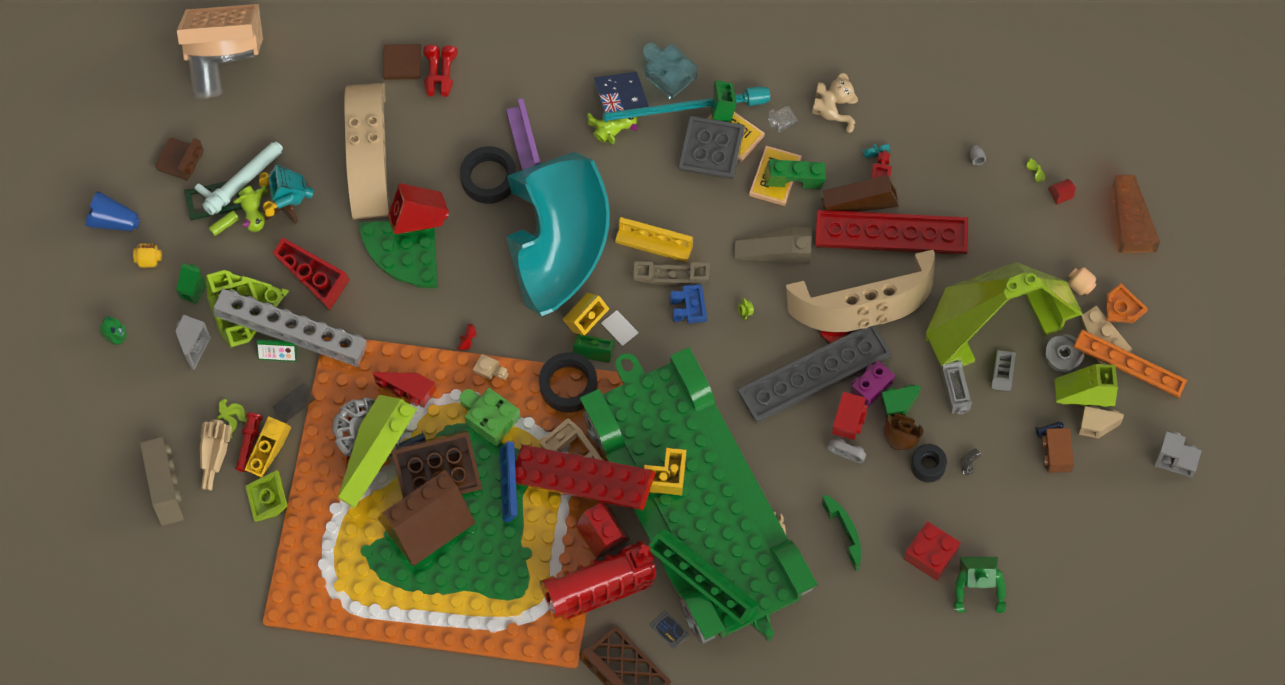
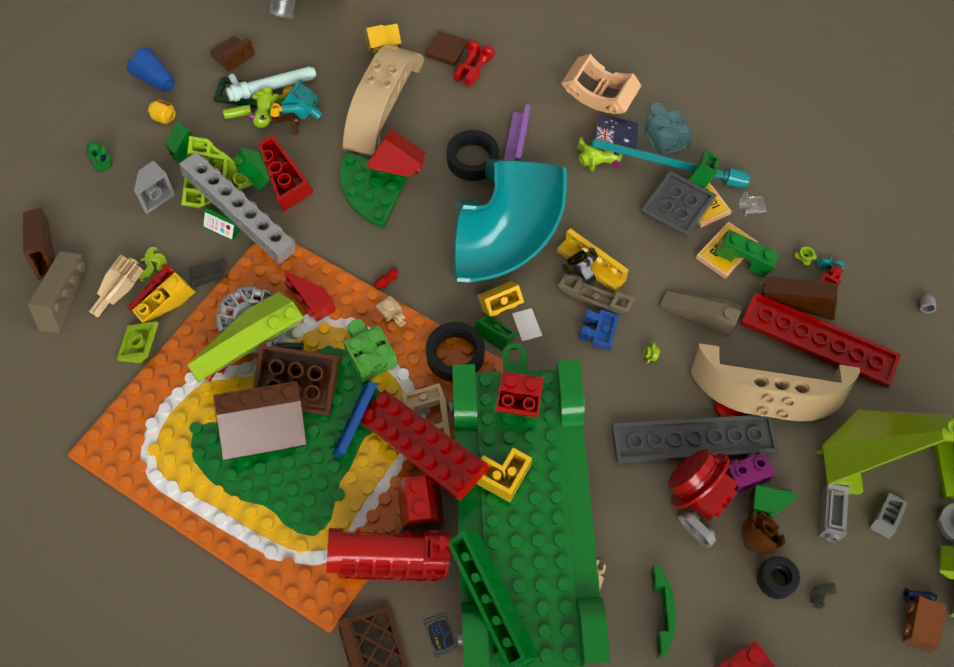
camera: 20 degrees right, 5 degrees down
(111, 442) = (37, 242): none -> reddish brown slope
(279, 278) = (252, 165): none -> green arch
(332, 79) = (382, 35): none -> yellow brick
(608, 31) = (626, 83): none -> light nougat window
(645, 248) = (580, 263): none -> black tile
(650, 399) = (519, 394): none -> red slope
(828, 407) = (696, 477): none -> red piece
(839, 92) = (815, 202): tan animal -> none
(850, 147) = (808, 252): none -> lime plate

